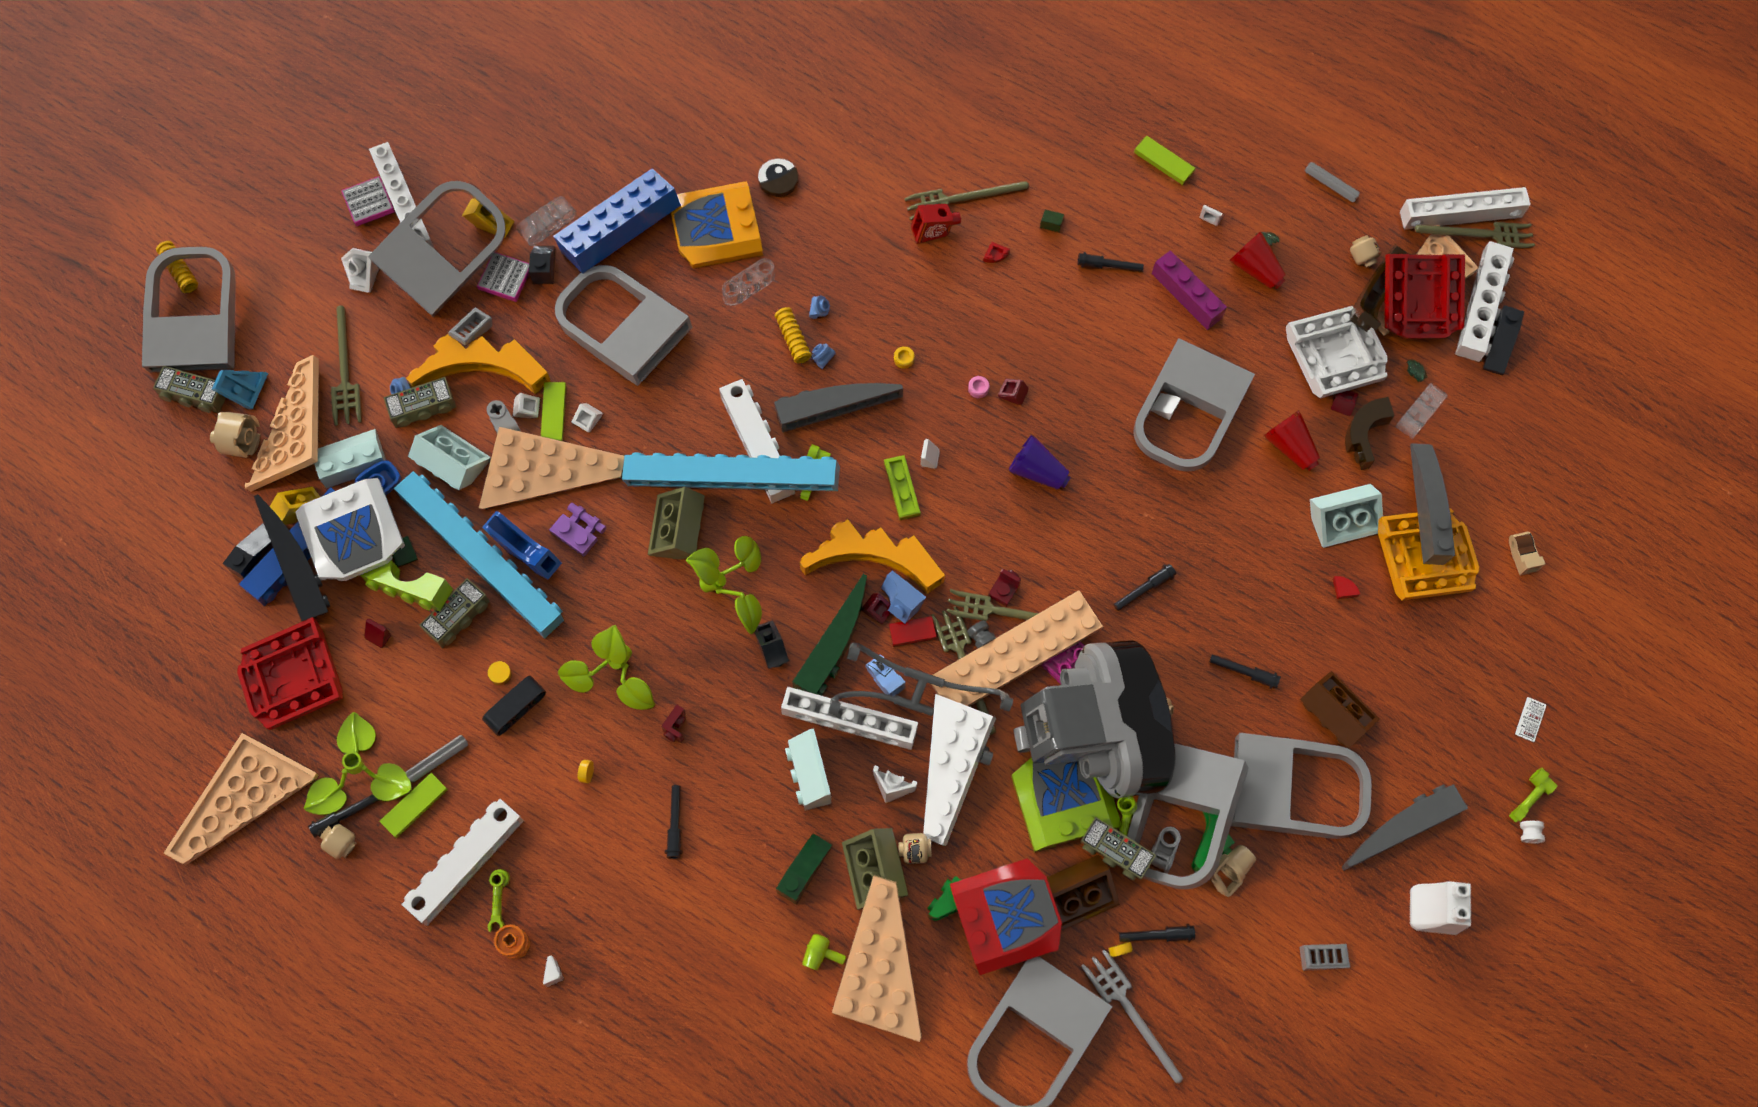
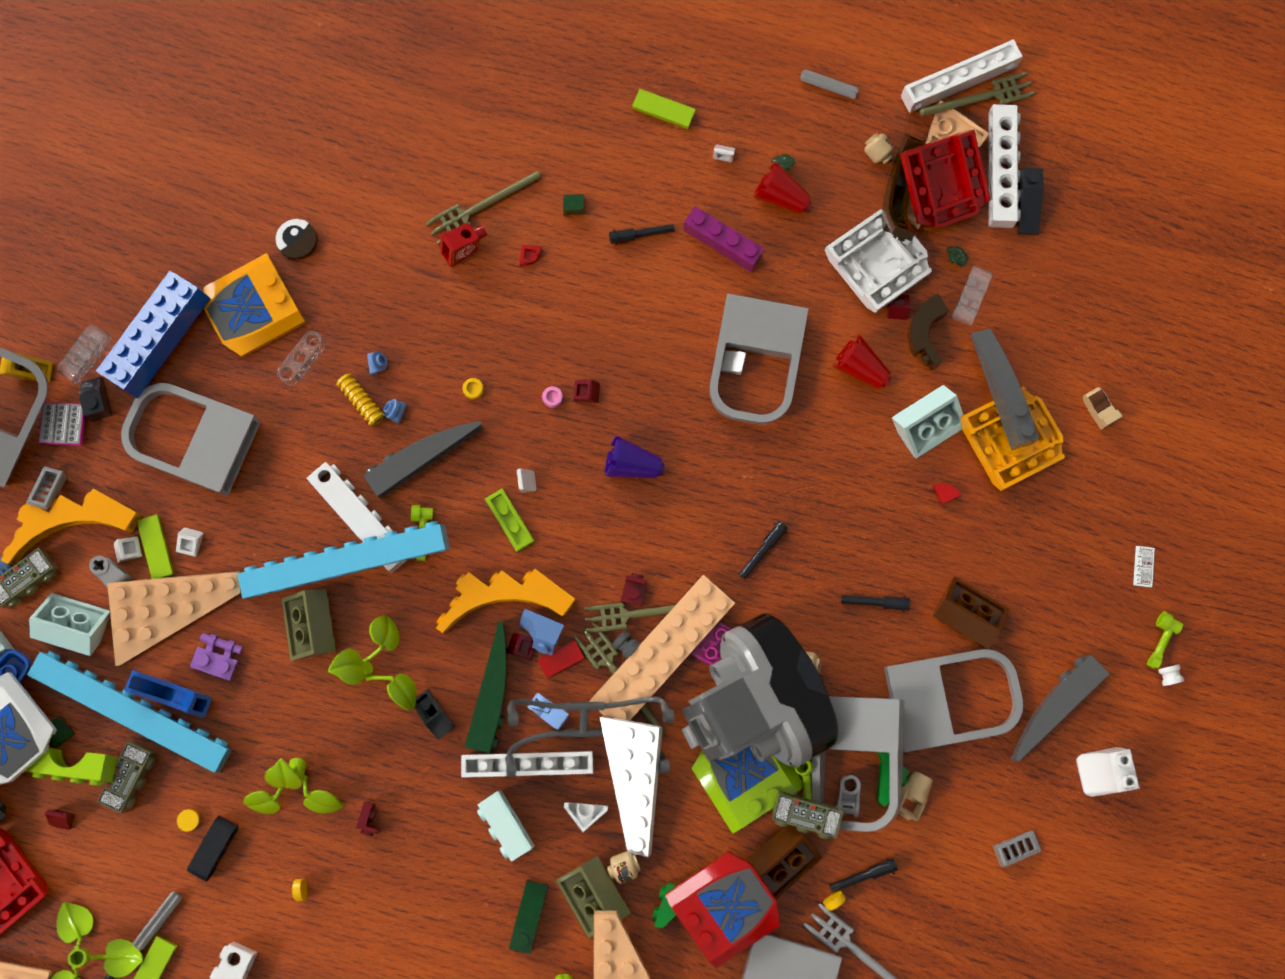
camera: 15 degrees left, 10 degrees up
(674, 833) = (400, 923): black pin -> none

